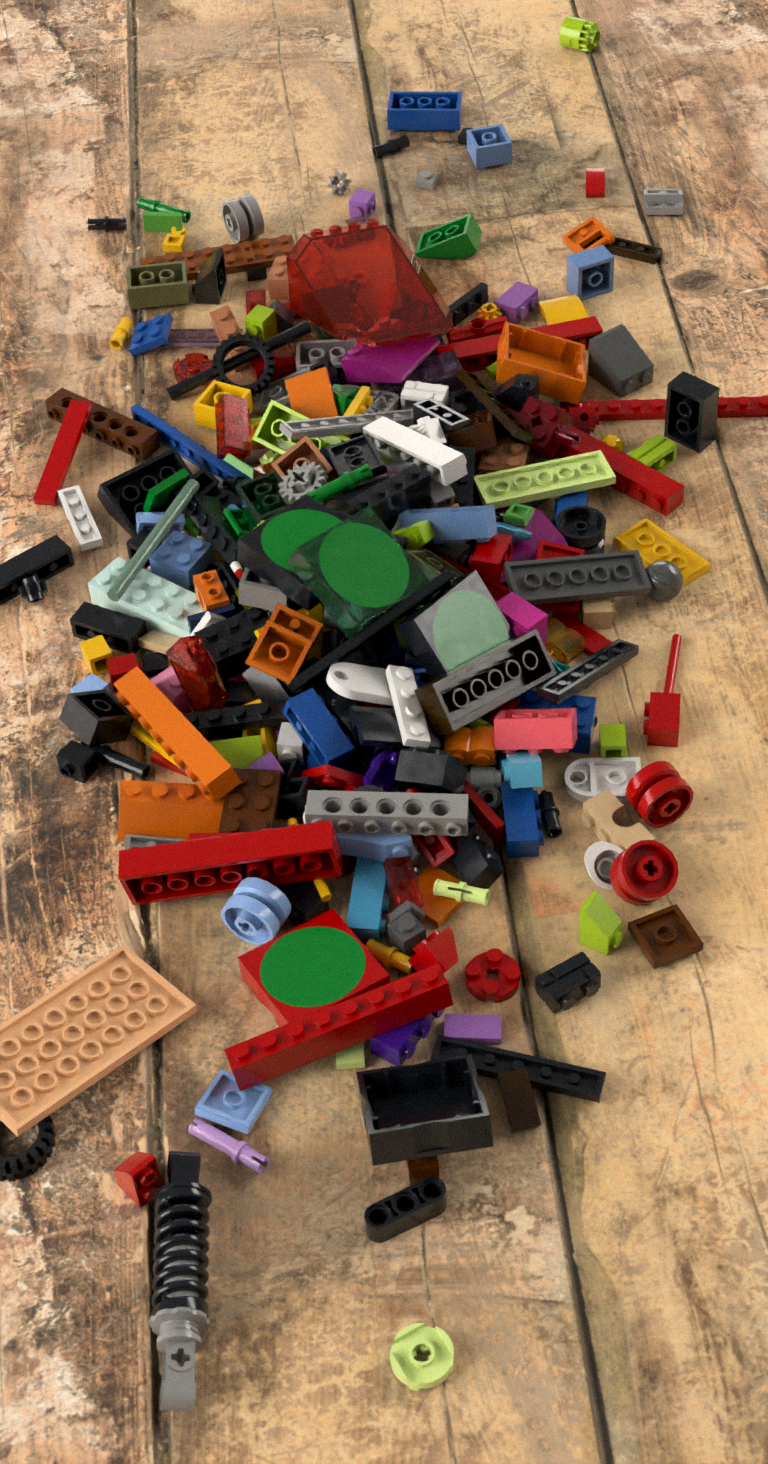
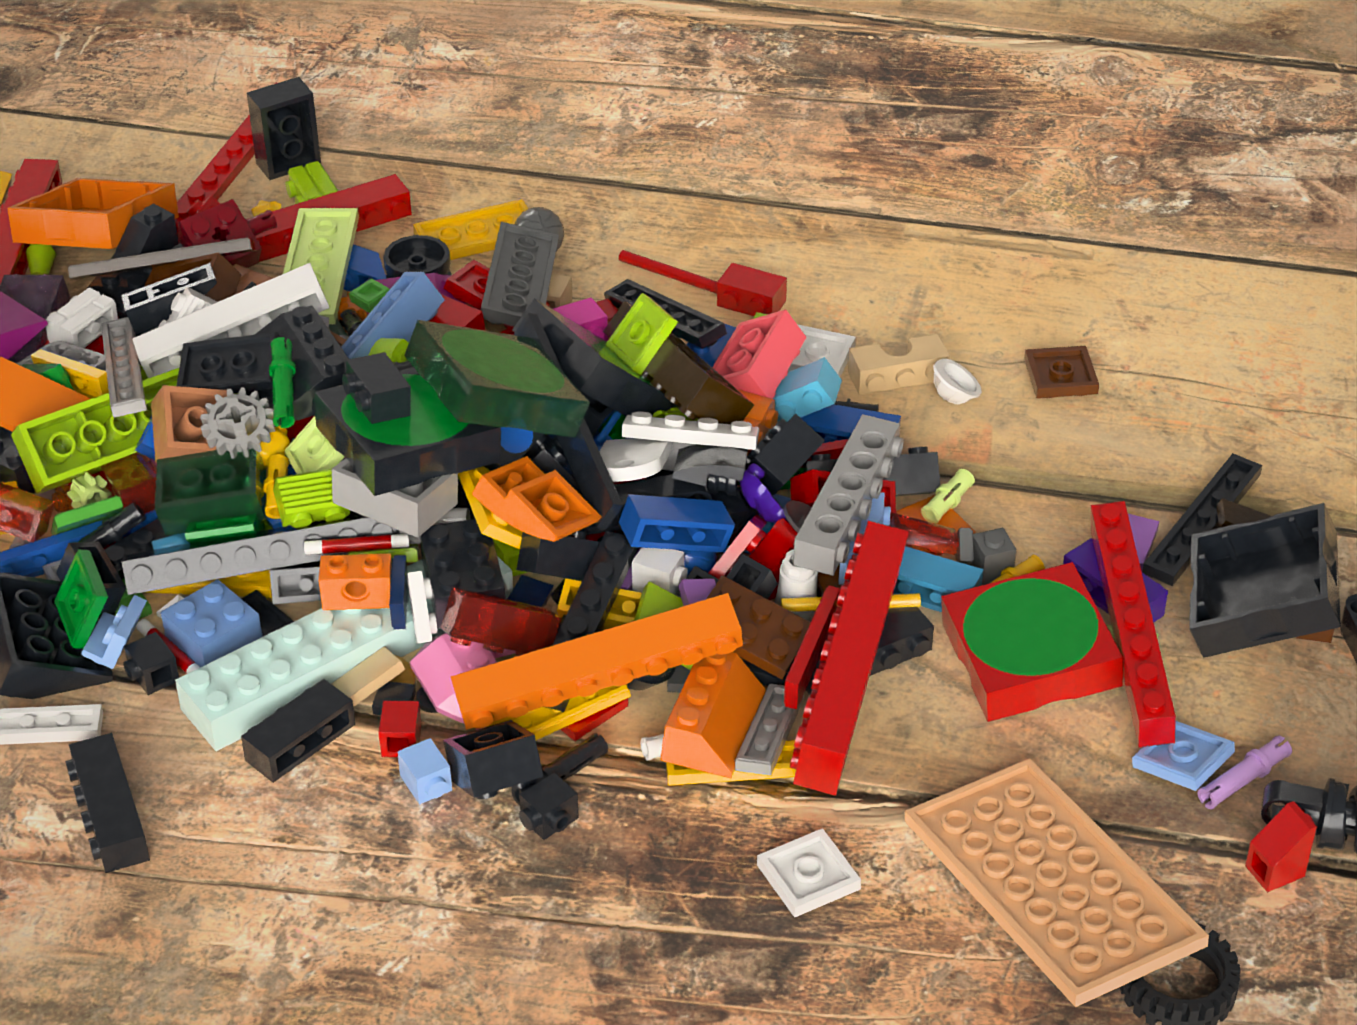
camera: 75 degrees left, 5 degrees down
(33, 589) = (160, 798): black gear -> none
(57, 907) = (808, 872): none -> white plate
(95, 653) = (346, 751): yellow brick -> none
(153, 540) = (188, 624): sand green piece -> none
(256, 910) = (915, 665): light blue wheel -> none
(309, 516) = (377, 388): none -> black brick
(435, 949) = (1037, 536): red slope -> none
(492, 962) = (1051, 505): red plate -> none
(493, 644) = (641, 333): none -> lime tile
(568, 982) = (1102, 452): black brick -> none
(599, 925) = (1037, 408): lime slope -> none
(619, 362) = (129, 157): dark grey slope -> none
(644, 872) = (986, 351): red wheel -> none
(659, 794) = (877, 312): red wheel -> none

